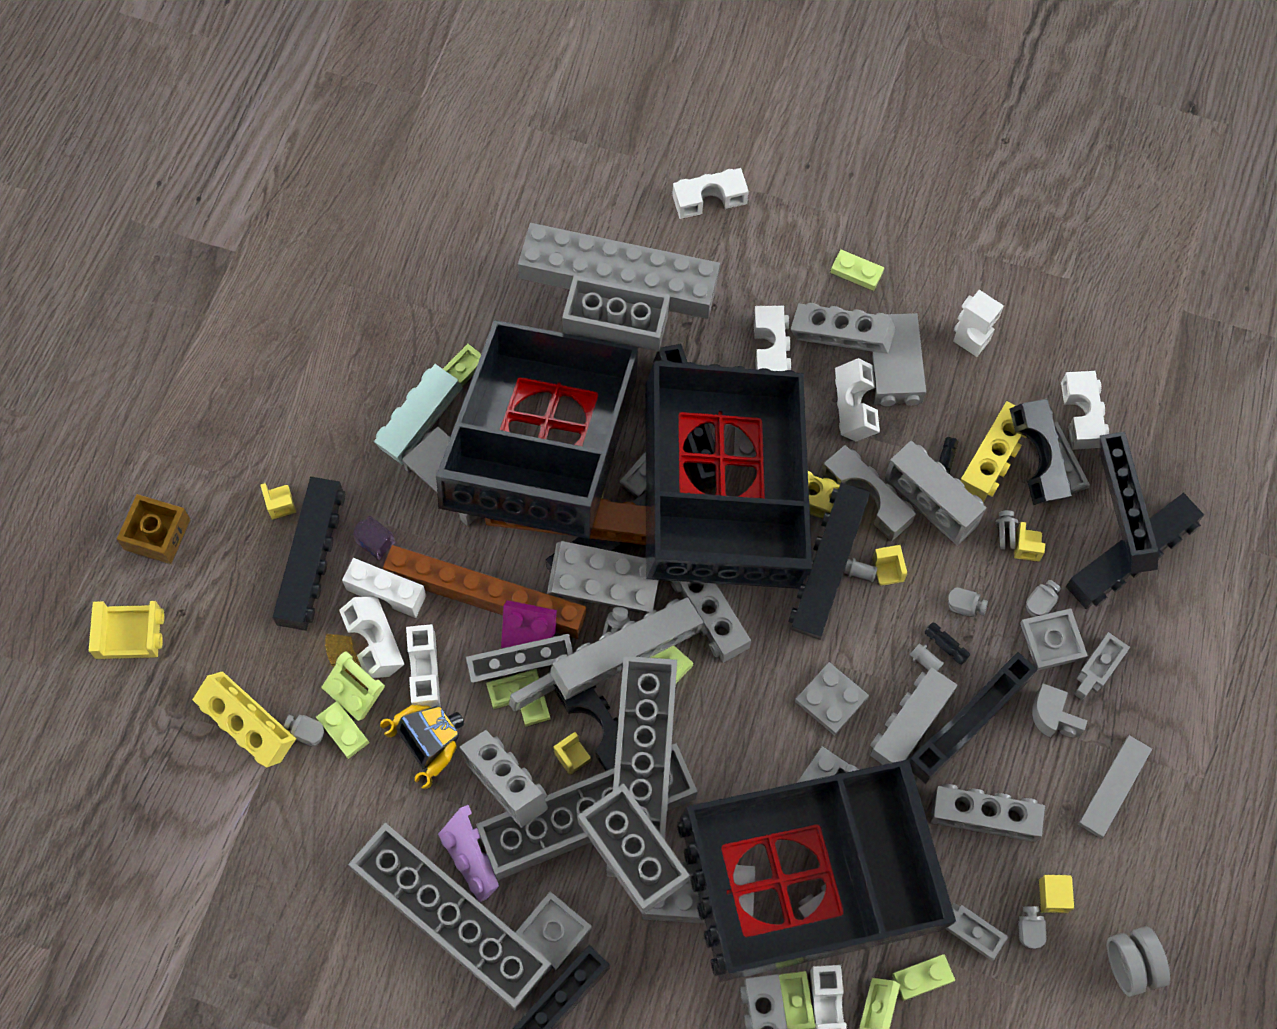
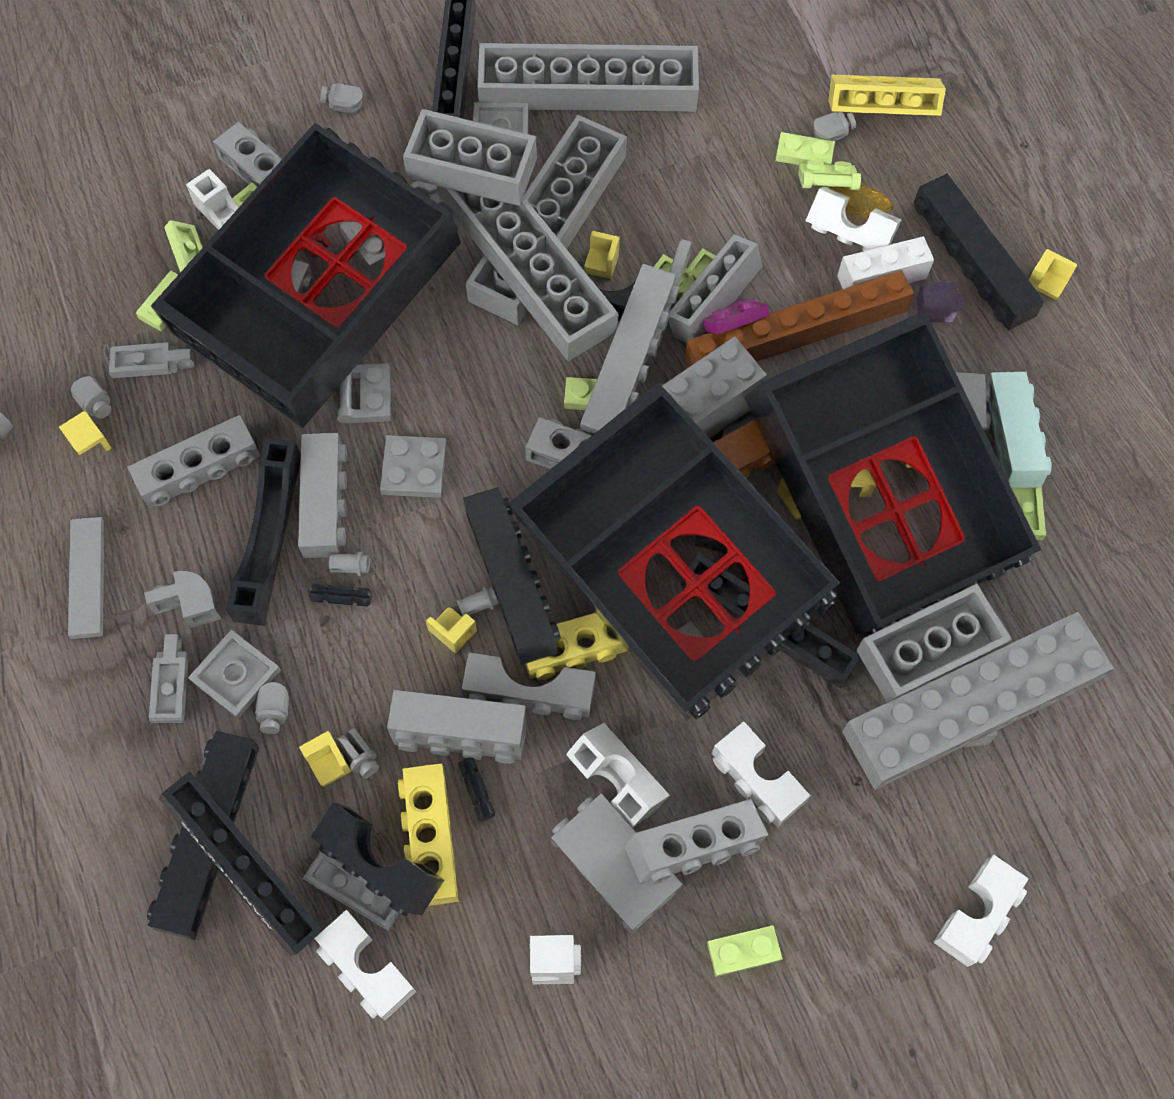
camera: 140 degrees right, 0 degrees up
(125, 631) = (1050, 95): light yellow panel -> none
(153, 529) = (1117, 171): pearl gold brick -> none
(424, 666) = (770, 217): white arch -> none
(428, 736) = (731, 183): torso -> none
(464, 849) = (637, 131): lavender wing -> none
(504, 778) = (652, 182): light grey brick -> none
(616, 620) = (657, 373): light grey arm -> none
(966, 602) = (348, 646): light grey arm -> none

